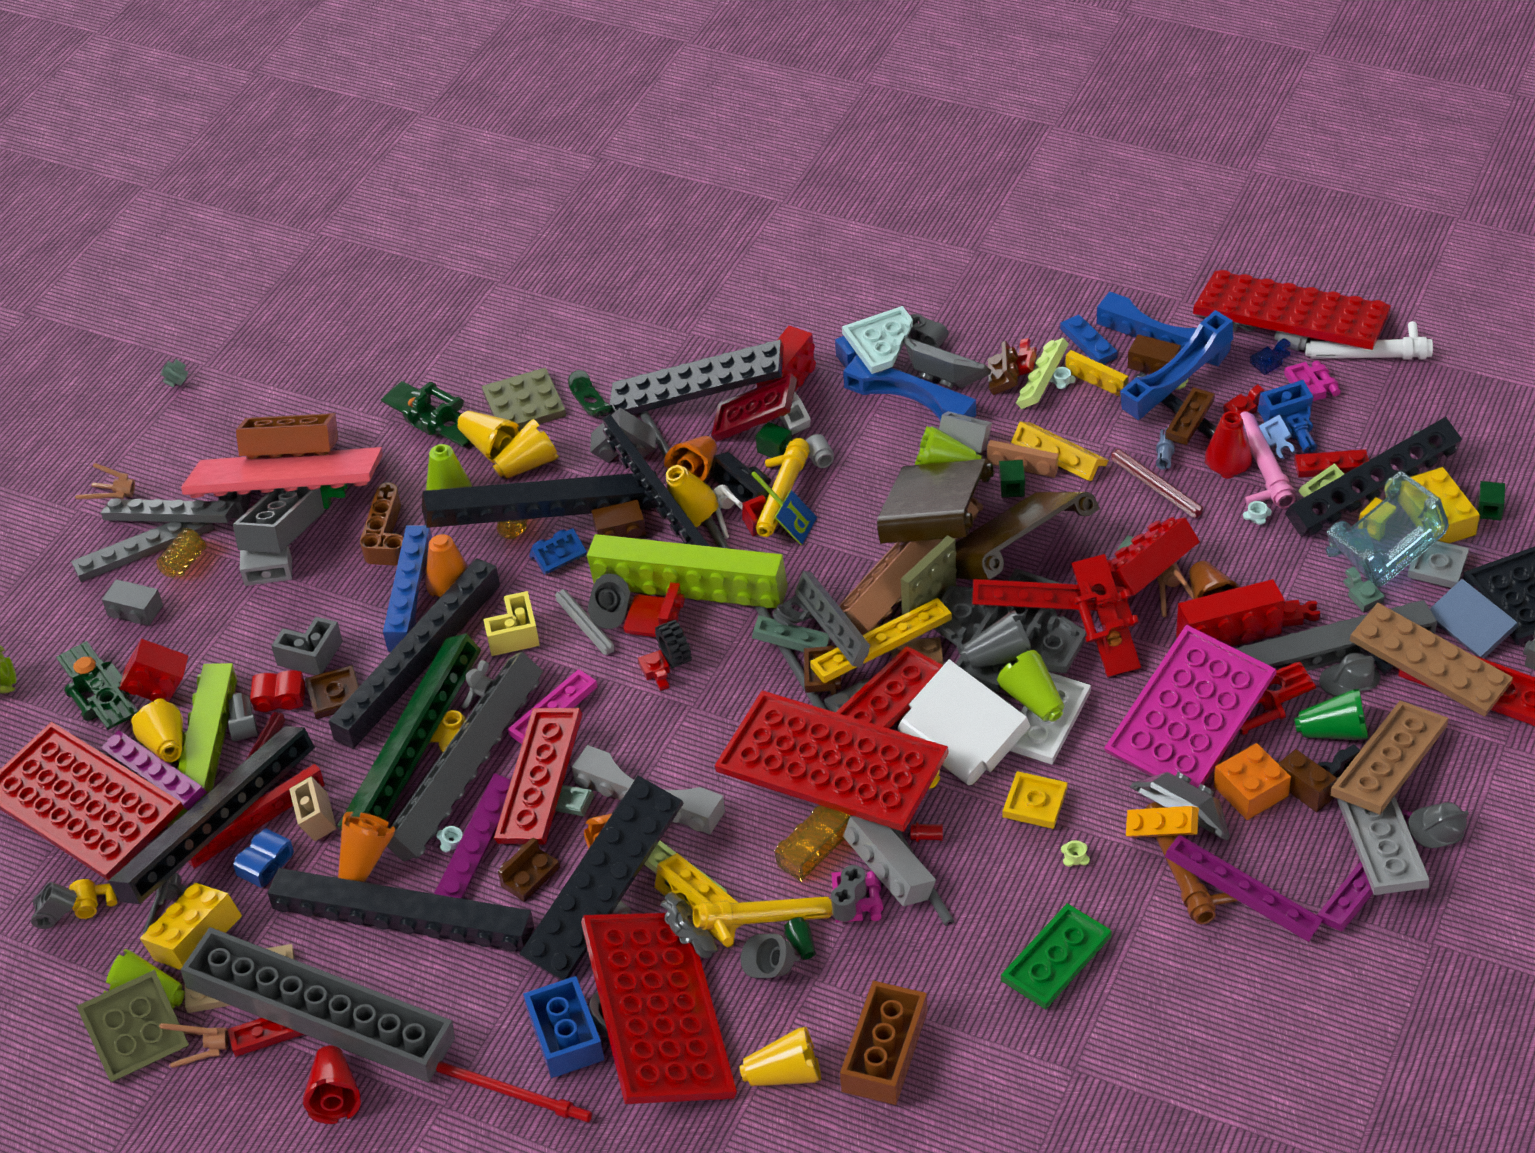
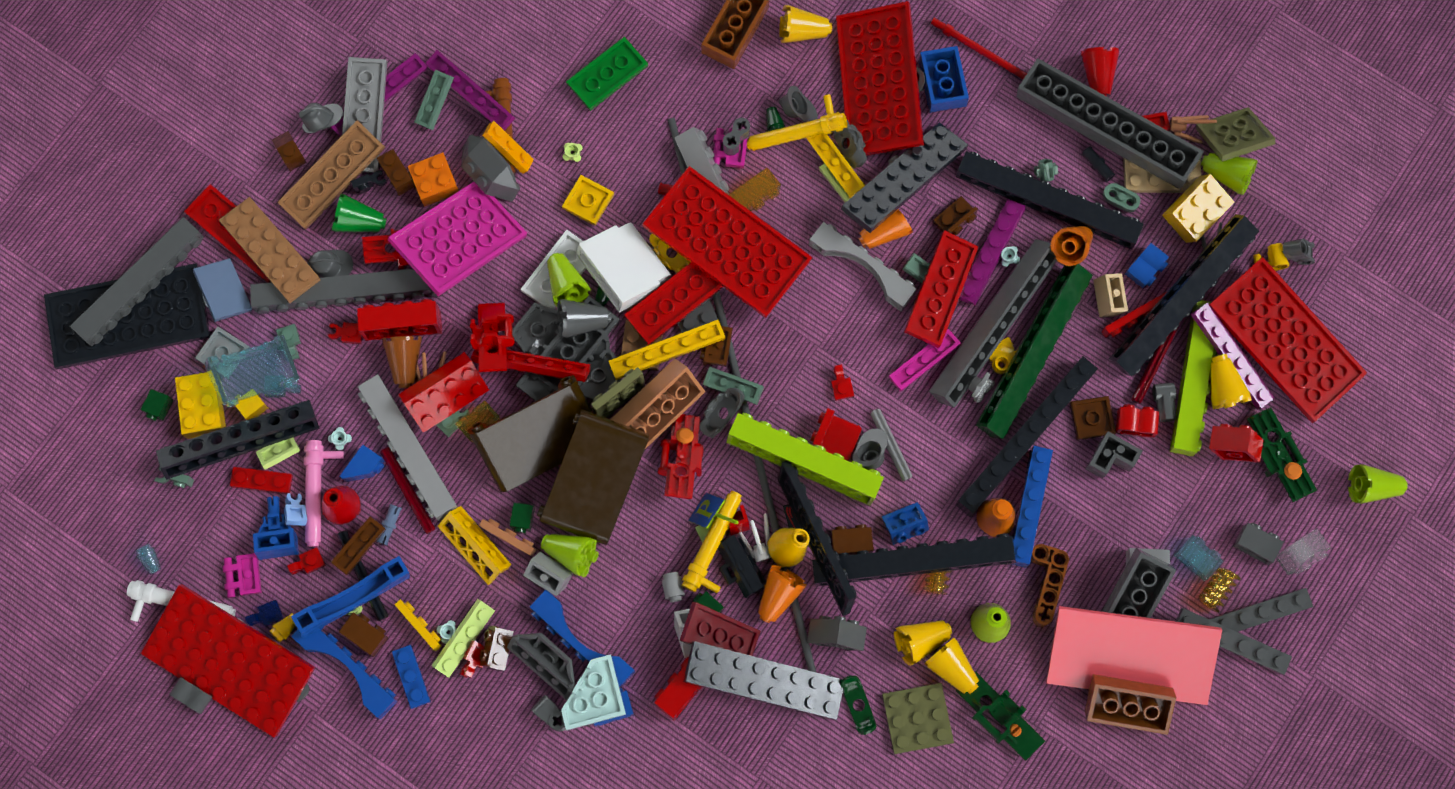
camera: 175 degrees left, 30 degrees up
(78, 593) = (1306, 550): none -> clear brick
(121, 487) = (1275, 685): nougat plant -> none
(205, 578) = (1199, 557): none -> clear light blue brick
(300, 934) = (1121, 196): none -> sand green plate
(328, 964) = (1098, 164): none -> black pin
(411, 947) = (1046, 170): none -> sand green gear
(512, 630) = (944, 438): light yellow brick -> none
(673, 643) = (825, 392): black tyre -> none
(829, 551) = (688, 457): none -> red piece
(832, 619) = (701, 370): dark grey plate -> none
(1098, 540) = (482, 413): none -> clear yellow cylinder
(1156, 503) = (407, 447): none -> light grey brick
(1216, 490) = (363, 465): none -> blue slope
(1244, 348) = (283, 628): none -> yellow cone
(1289, 870) = (434, 99): none -> sand green plate
(1322, 281) = (190, 695): none -> dark grey axle
(1426, 376) = (148, 558): none -> clear light blue cone
(1465, 781) = (289, 151): none -> reddish brown slope

